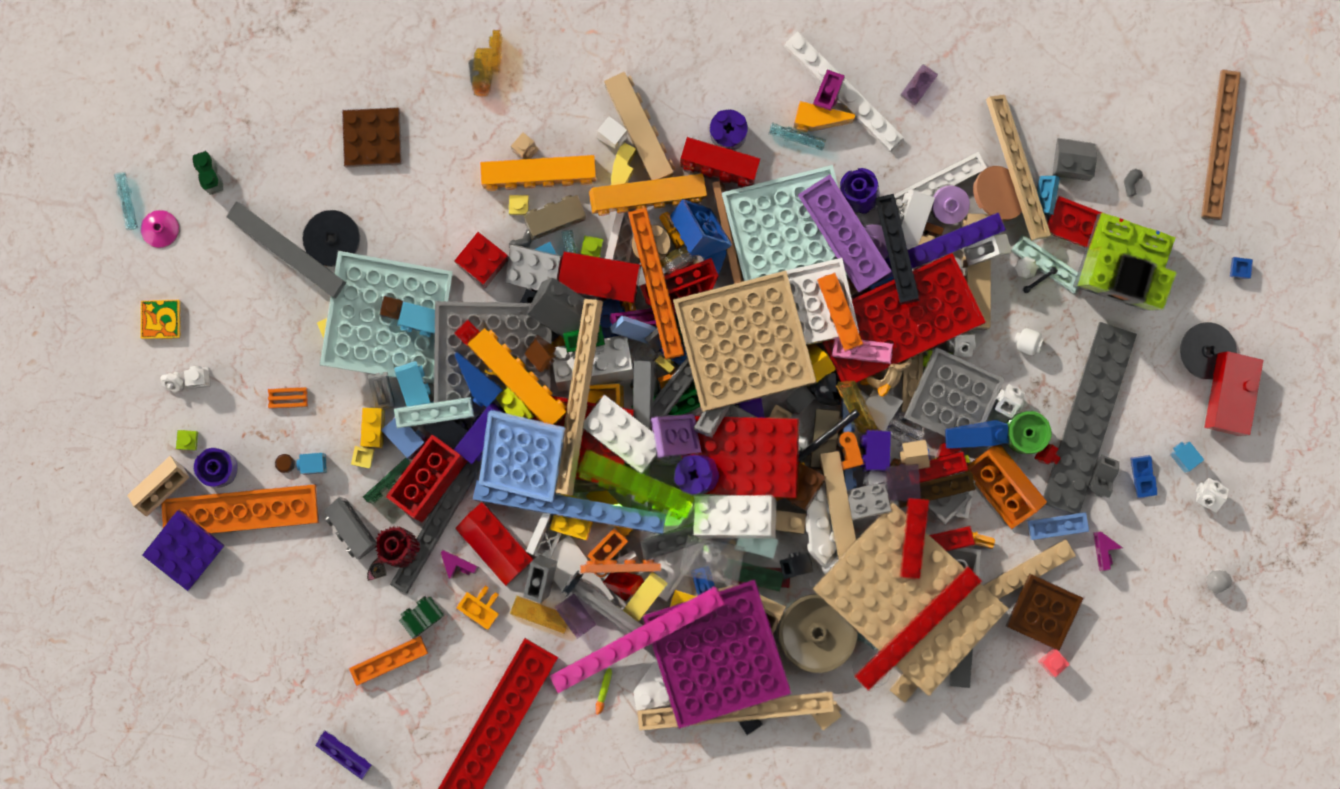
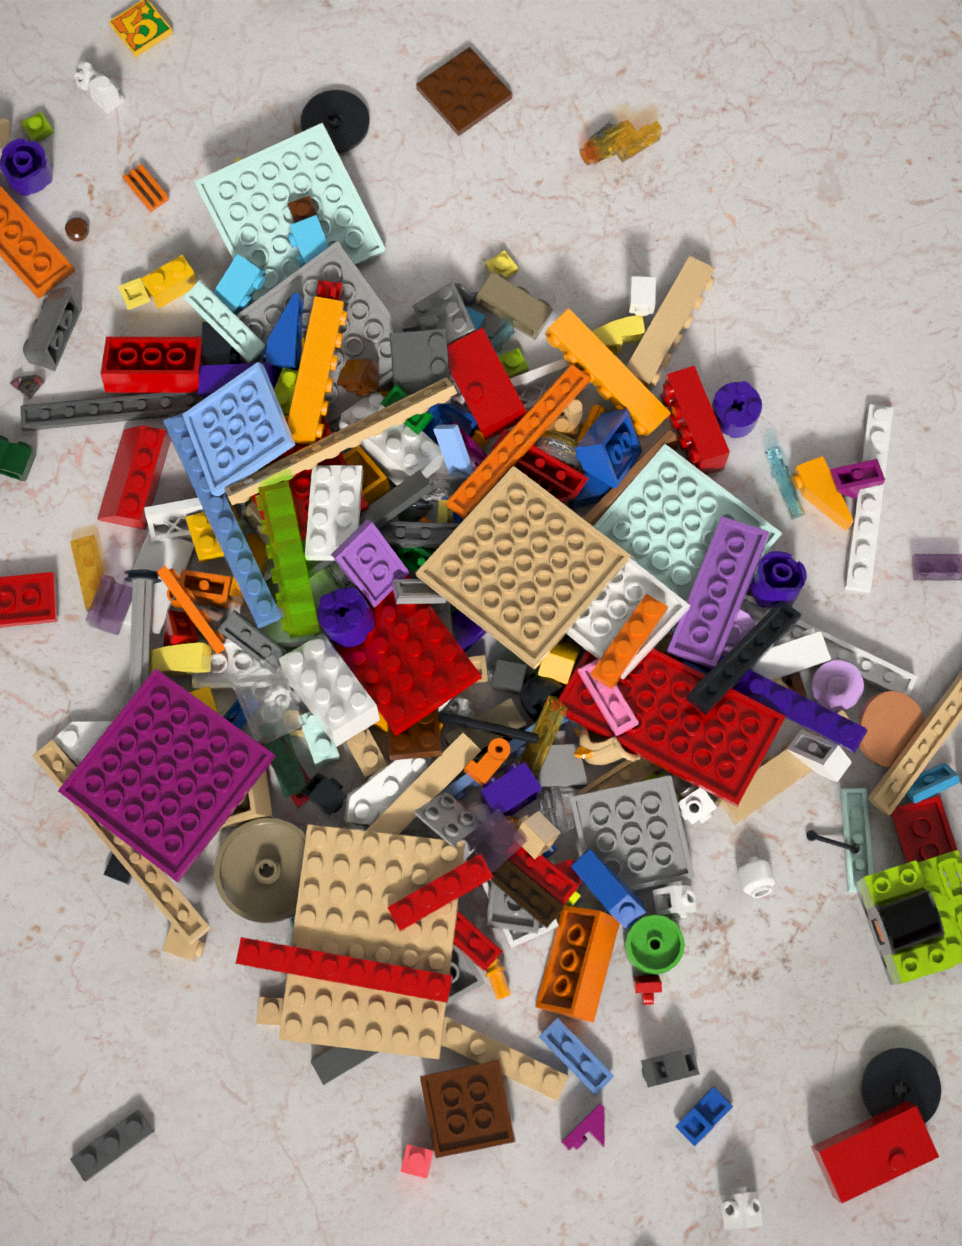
camera: 50 degrees right, 10 degrees down
(286, 250) = (289, 83): dark grey tile -> none
(312, 463) = (93, 252): dark azure brick -> none
(379, 378) = (216, 265): light grey tile -> none
(387, 482) = (104, 327): clear green plate -> none
(397, 547) = (62, 383): dark red brick -> none
(405, 438) = (180, 317): medium blue brick -> none
(452, 562) = (84, 451): magenta slope -> none
(477, 610) = (51, 507): light orange hinge -> none
(481, 259) = (417, 267): red brick -> none
(524, 147) = (563, 231): tan brick -> none
(538, 172) = (548, 260): light orange brick -> none
(540, 579) = (125, 542): dark grey brick -> none
(603, 691) = (35, 698): lime piece -> none
(637, 639) = (128, 681): dark pink plate -> none
(1026, 267) = (834, 817): white piece -> none
(1089, 418) = (722, 1006): dark grey plate -> none
(1186, 456) = (763, 1148): dark azure brick -> none

